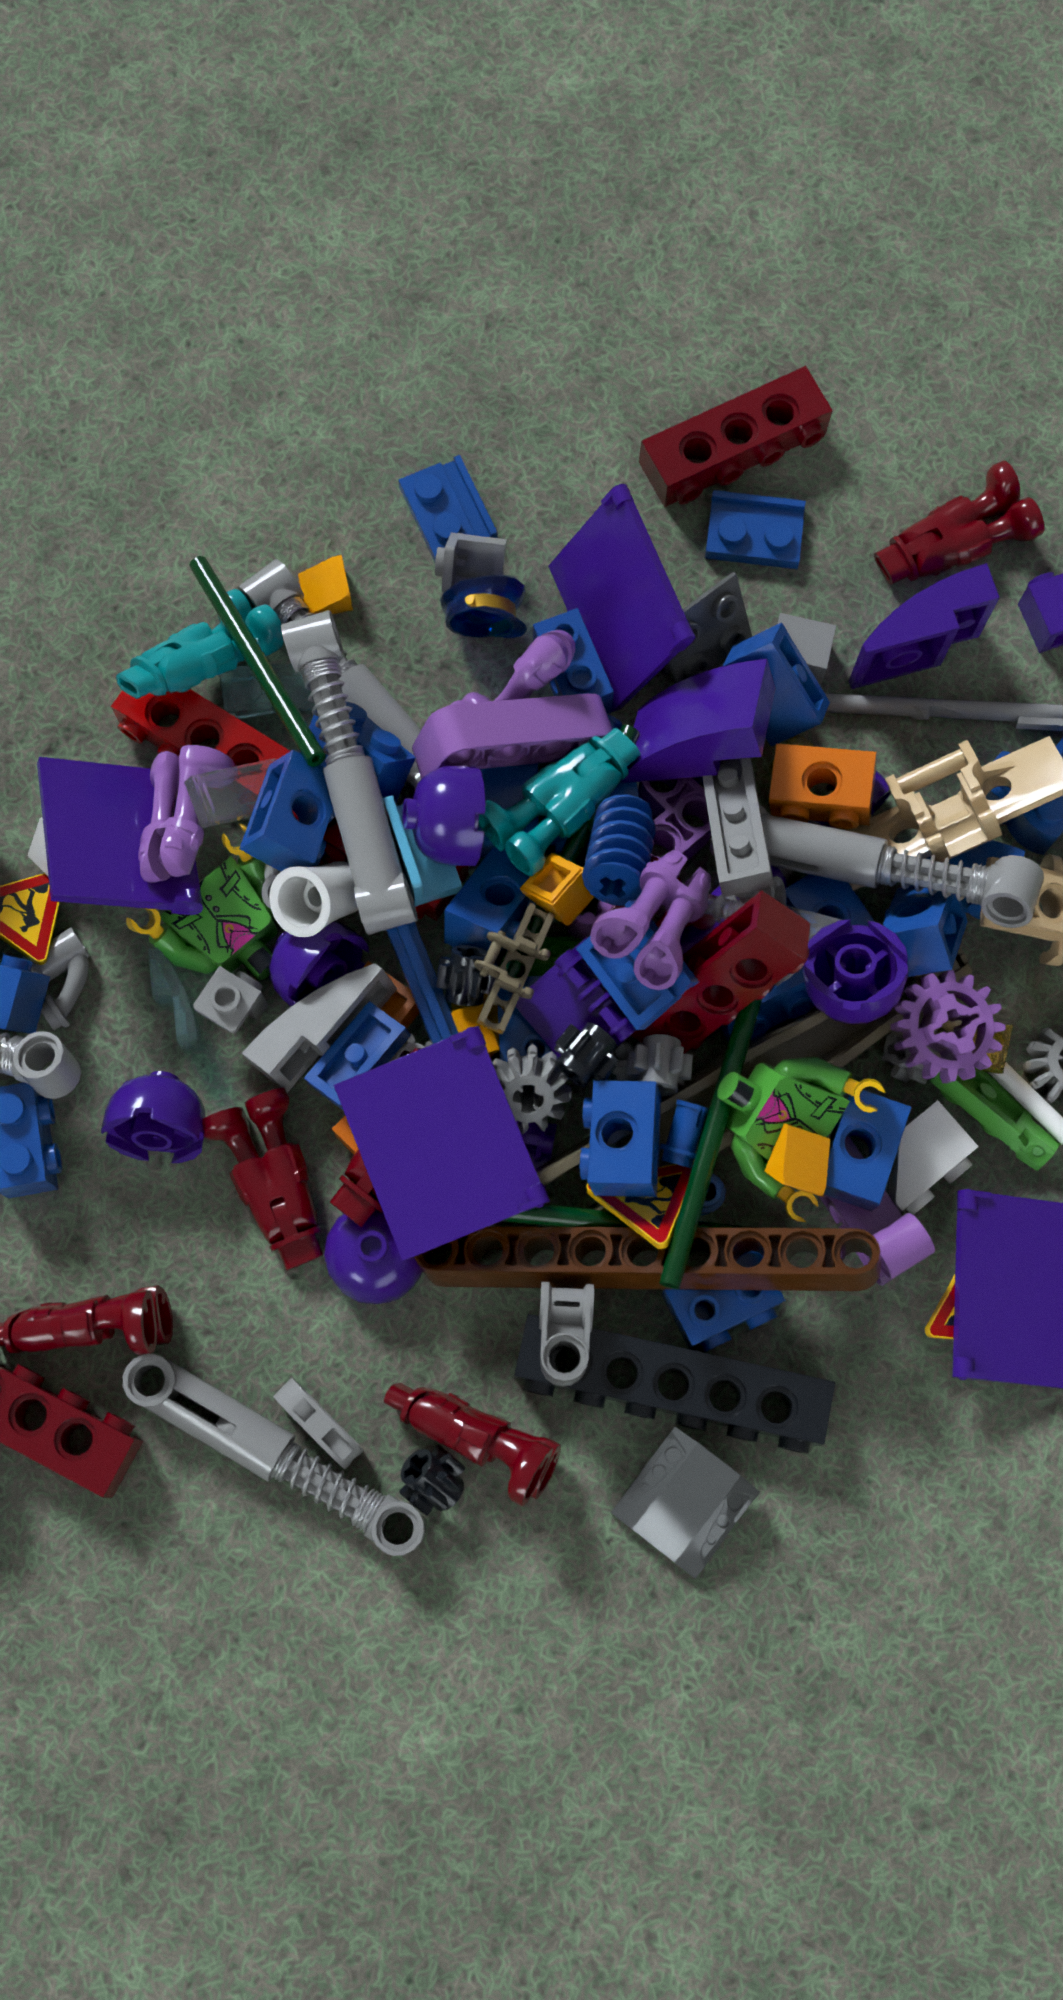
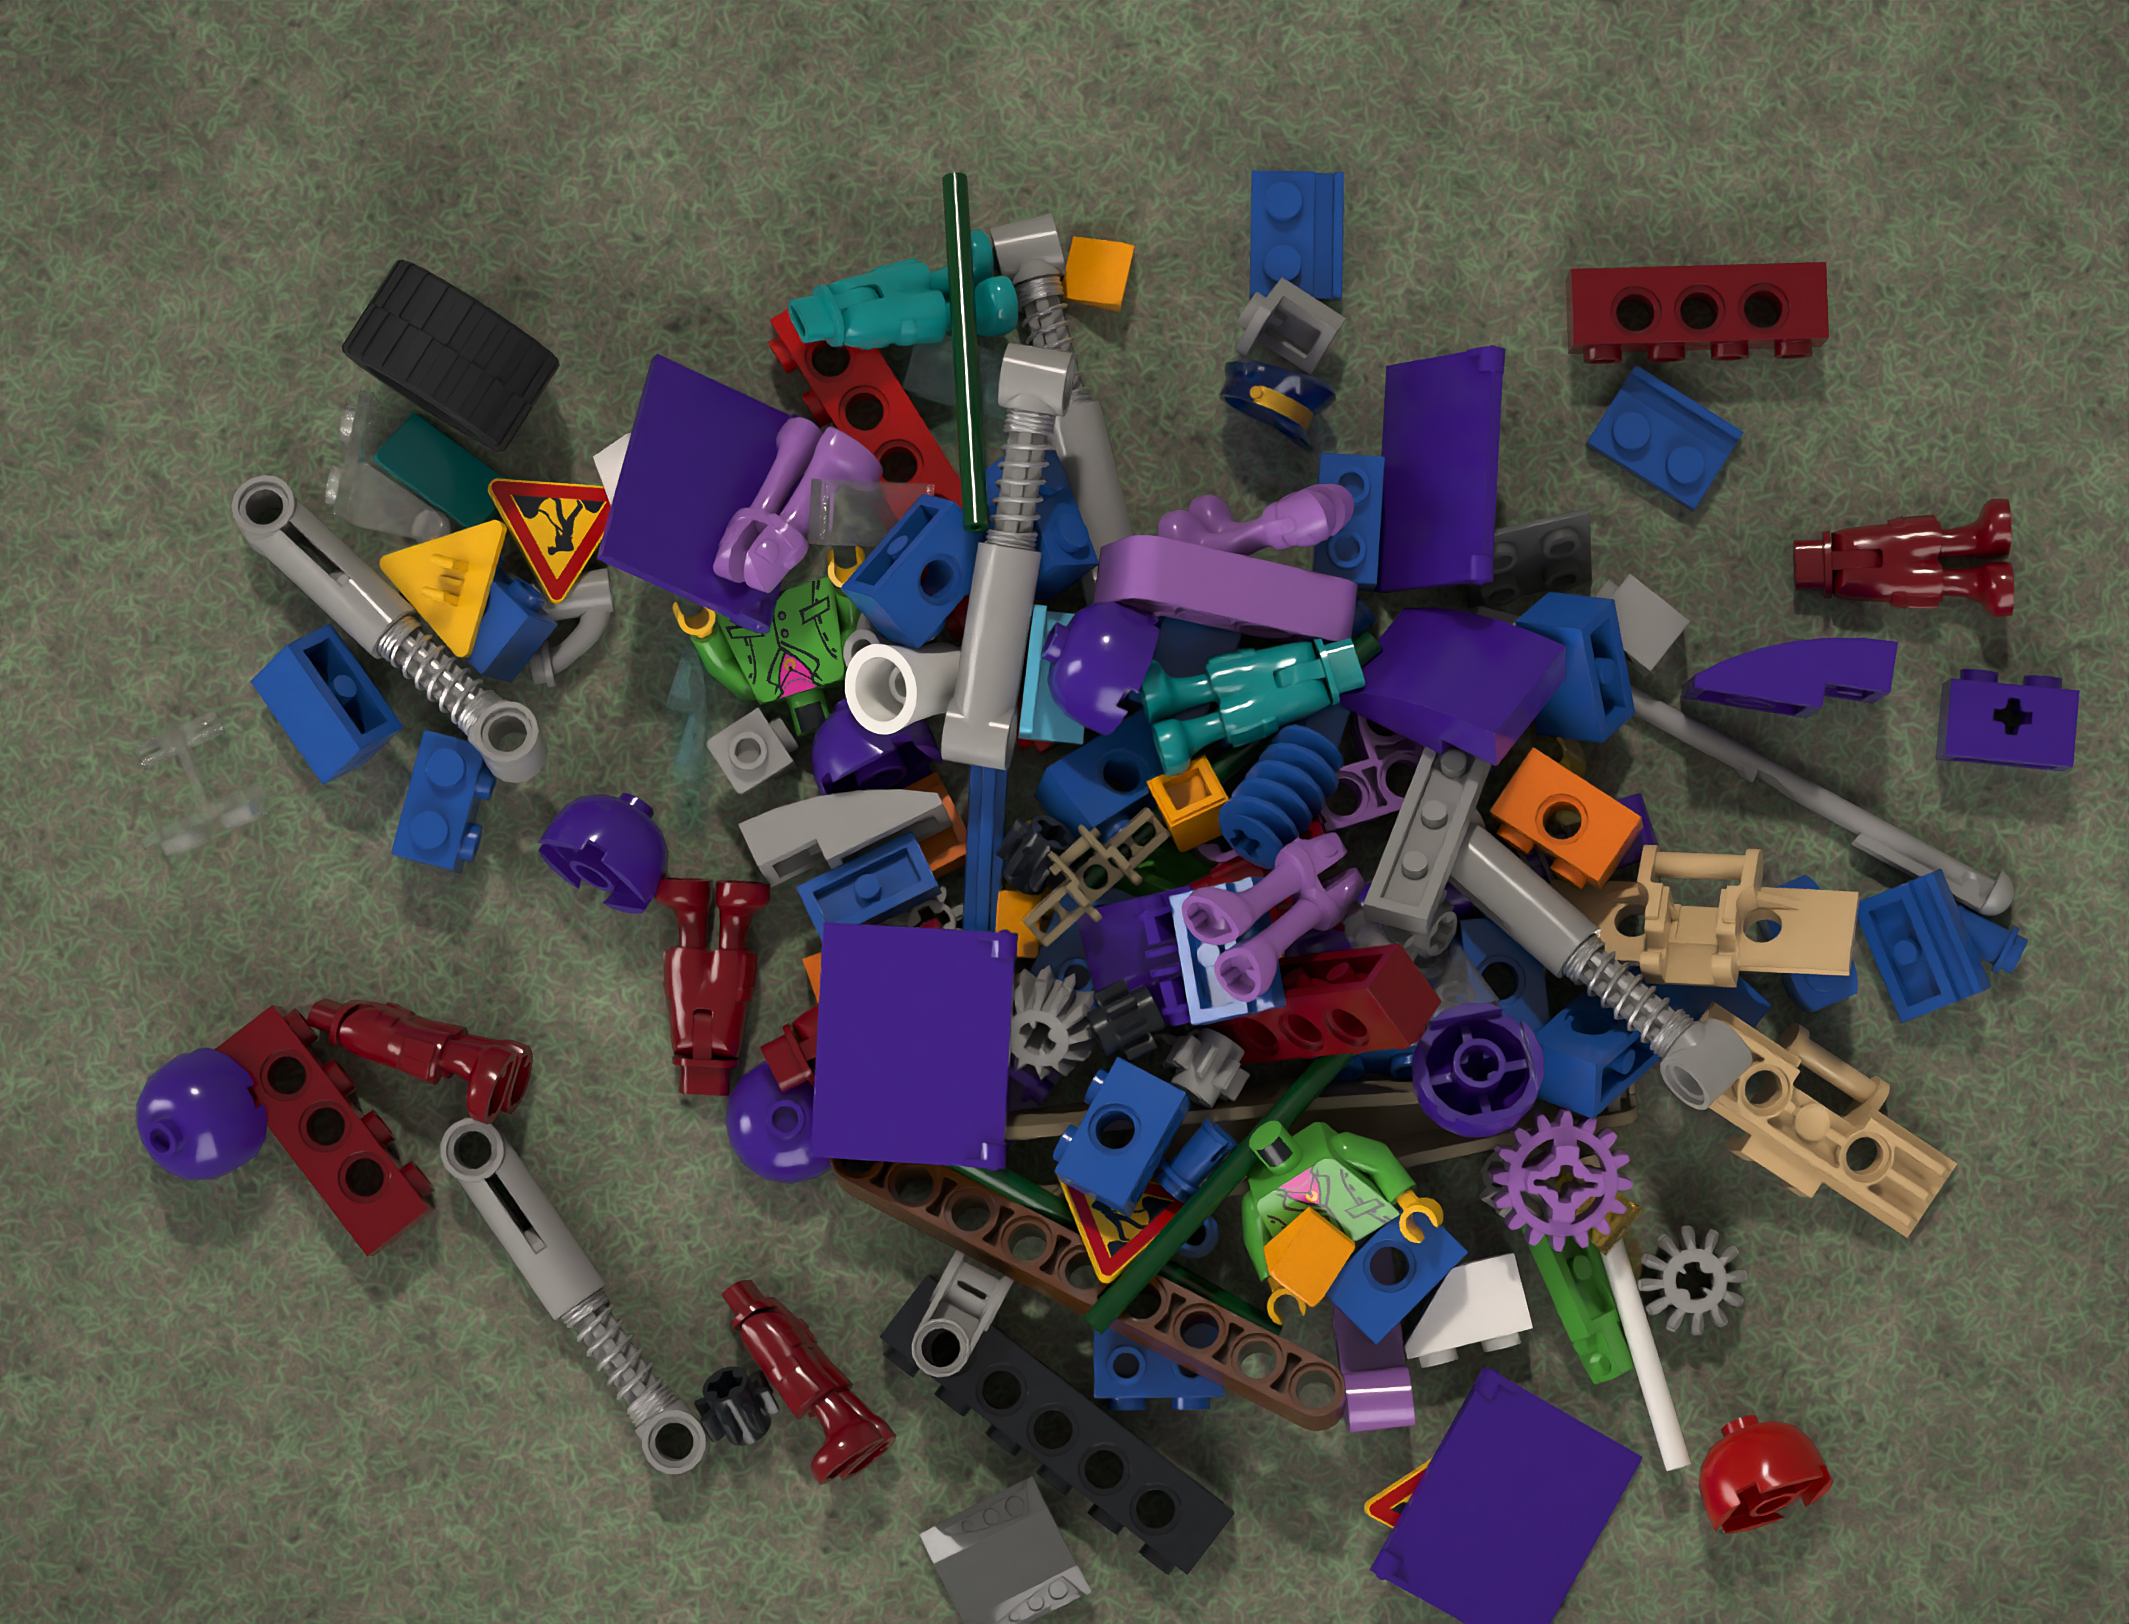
camera: 30 degrees right, 10 degrees up
(318, 1423) = (638, 1283): light grey piece -> none

